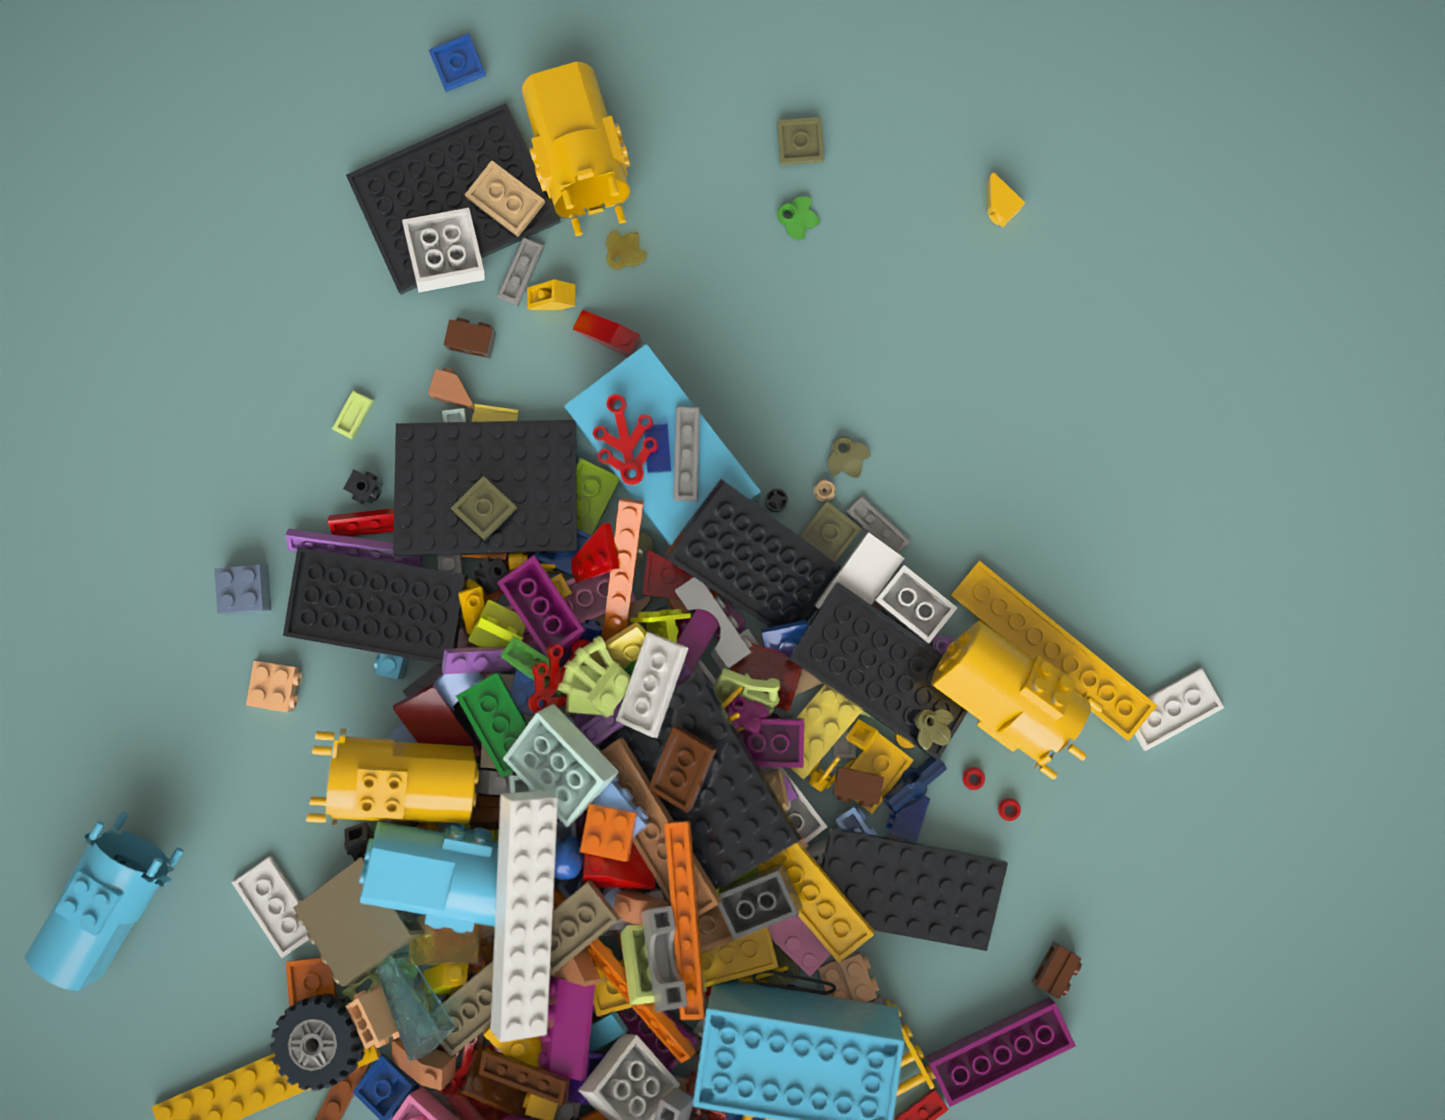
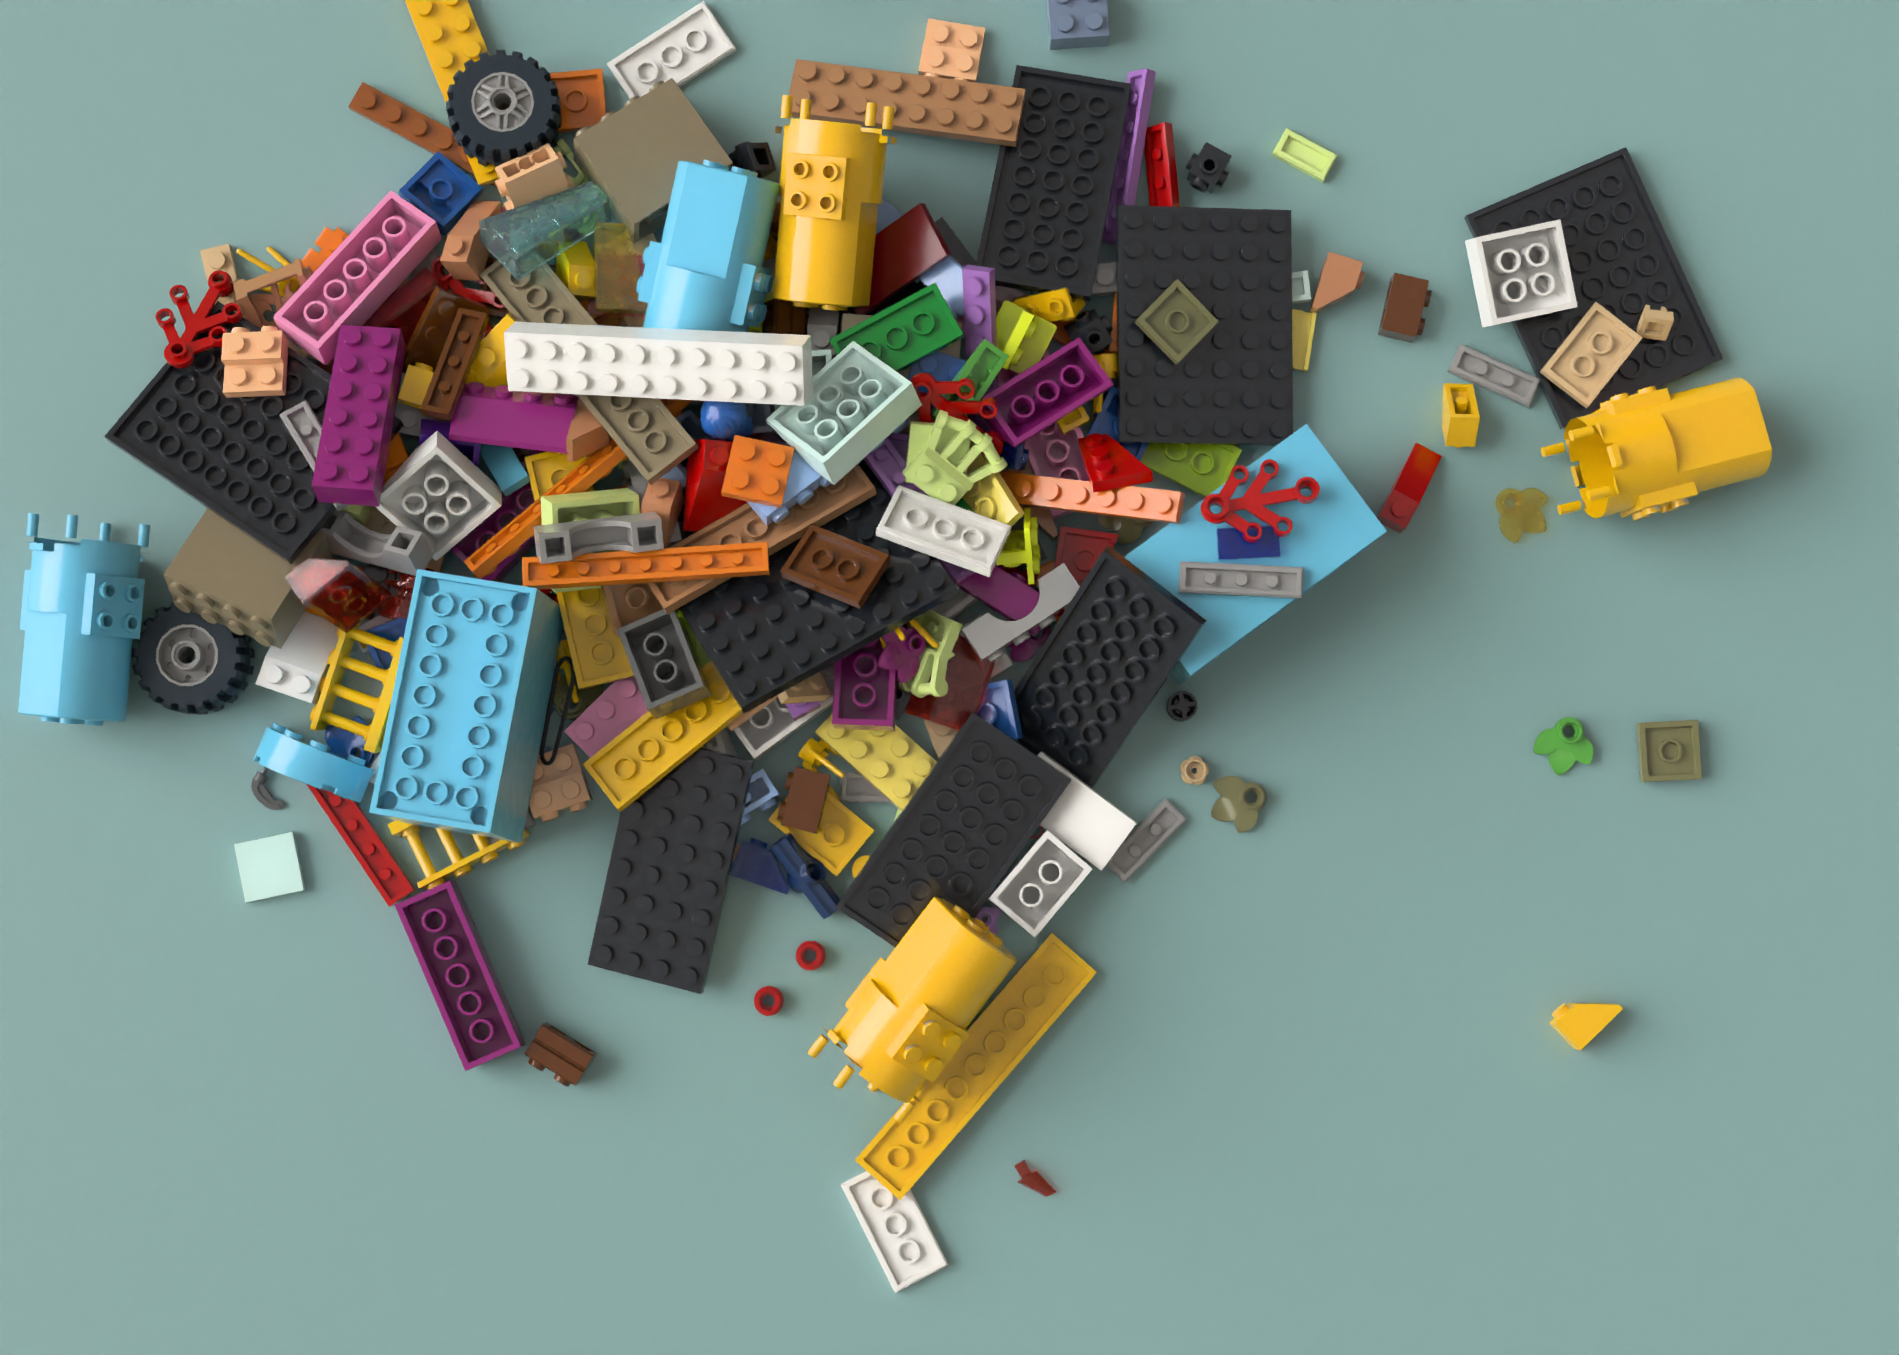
camera: 85 degrees right, 0 degrees up
(312, 710) = (920, 102): none -> medium nougat plate
(391, 666) = (974, 202): medium azure brick -> none
(457, 62) = (1779, 294): blue plate -> none
(481, 151) = (1655, 323): none -> tan tile
(830, 531) = (1138, 776): olive plate -> none
(862, 735) = (870, 809): yellow plate -> none
(936, 728) = (876, 904): olive plate -> none
(1135, 605) = (1033, 1179): none -> clear red bar

